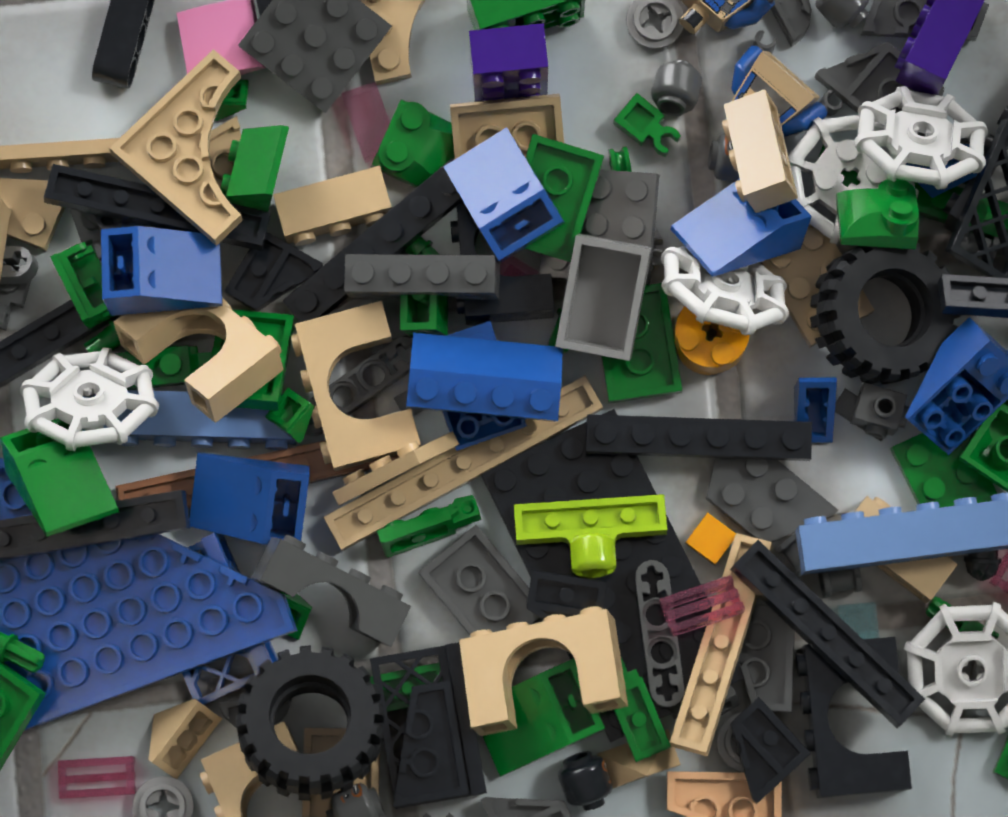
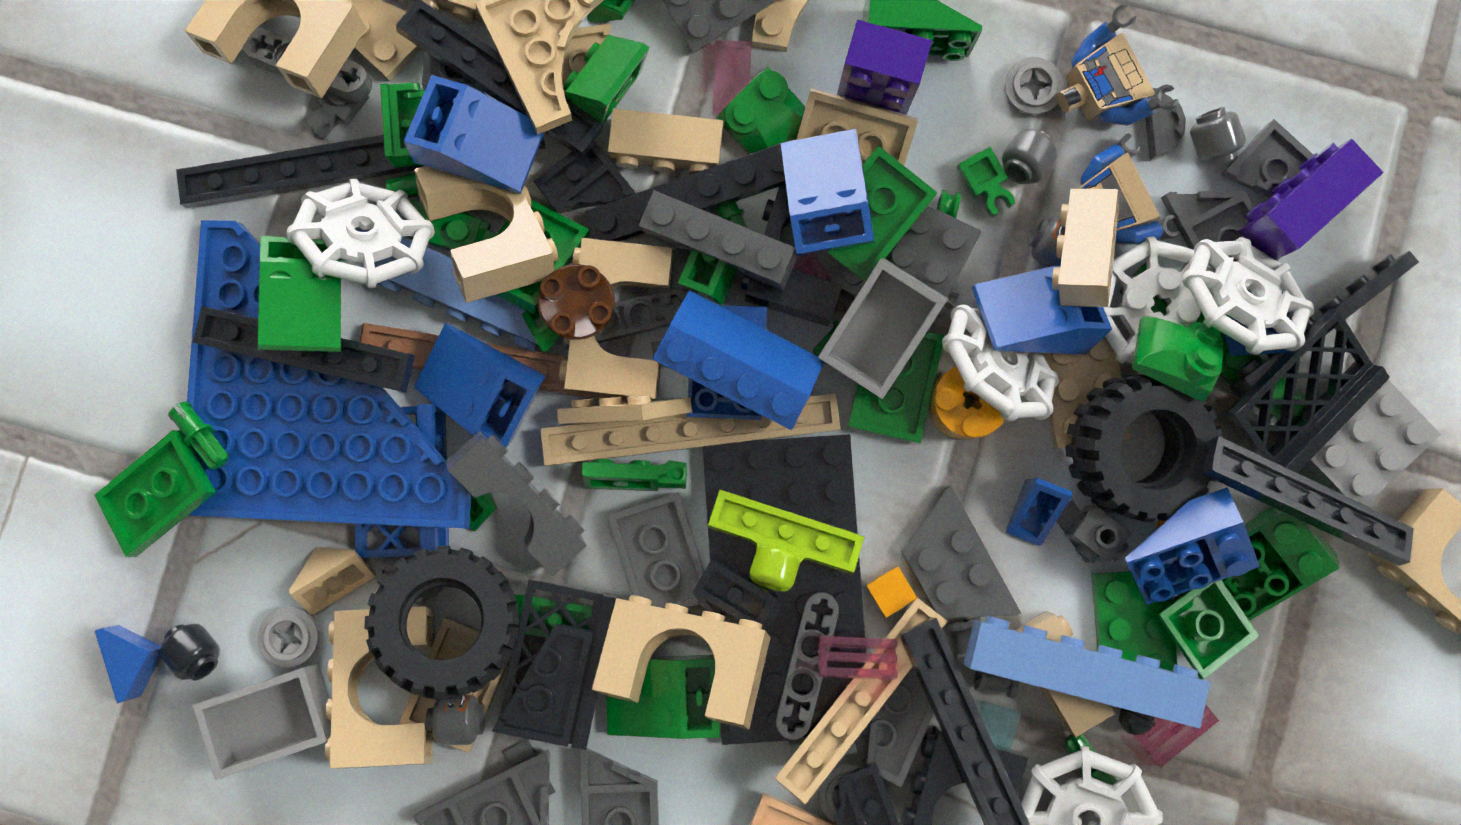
camera: 20 degrees right, 5 degrees up
(129, 776) = (270, 594): clear pink tile -> none
(314, 383) = (576, 301): none -> reddish brown dish
(585, 780) = (683, 772): black head -> none
(625, 770) = (741, 771): tan slope -> none
(640, 719) = (757, 744): green hinge -> none
(699, 437) = (919, 494): black plate -> none

